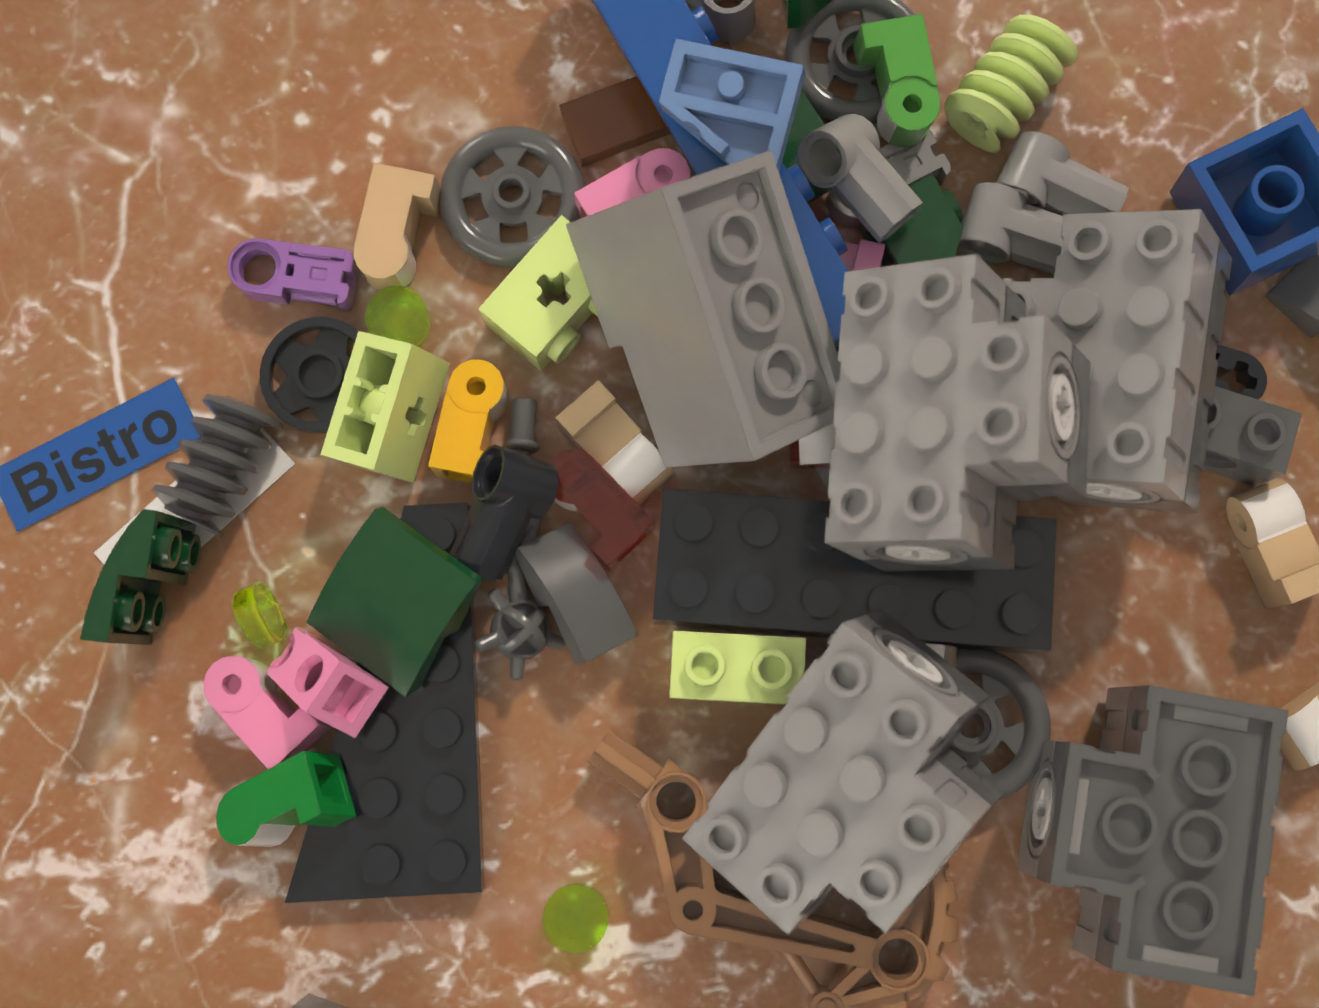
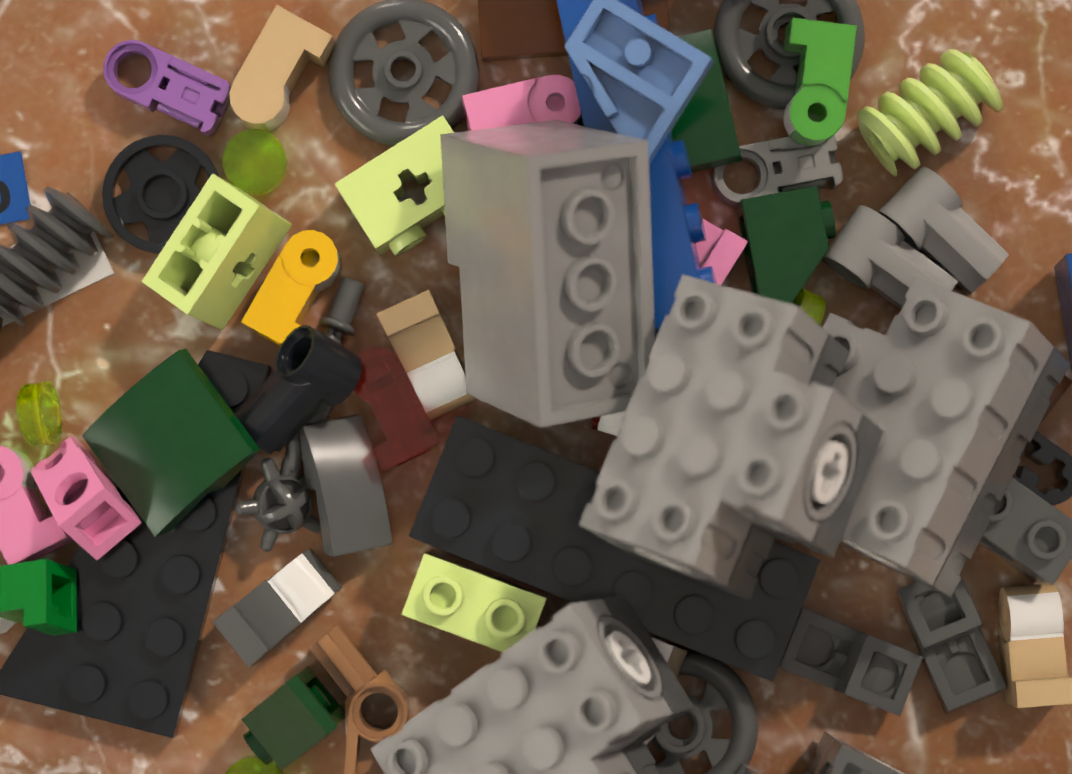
camera: 10 degrees right, 5 degrees up
(545, 730) = (277, 607): none -> dark grey leg
(593, 837) = (292, 719): none -> dark green slope
(859, 175) = (734, 150): light grey piece -> none
(1115, 613) = (851, 662): none -> dark grey slope
(1198, 567) = (951, 645): none -> dark grey slope

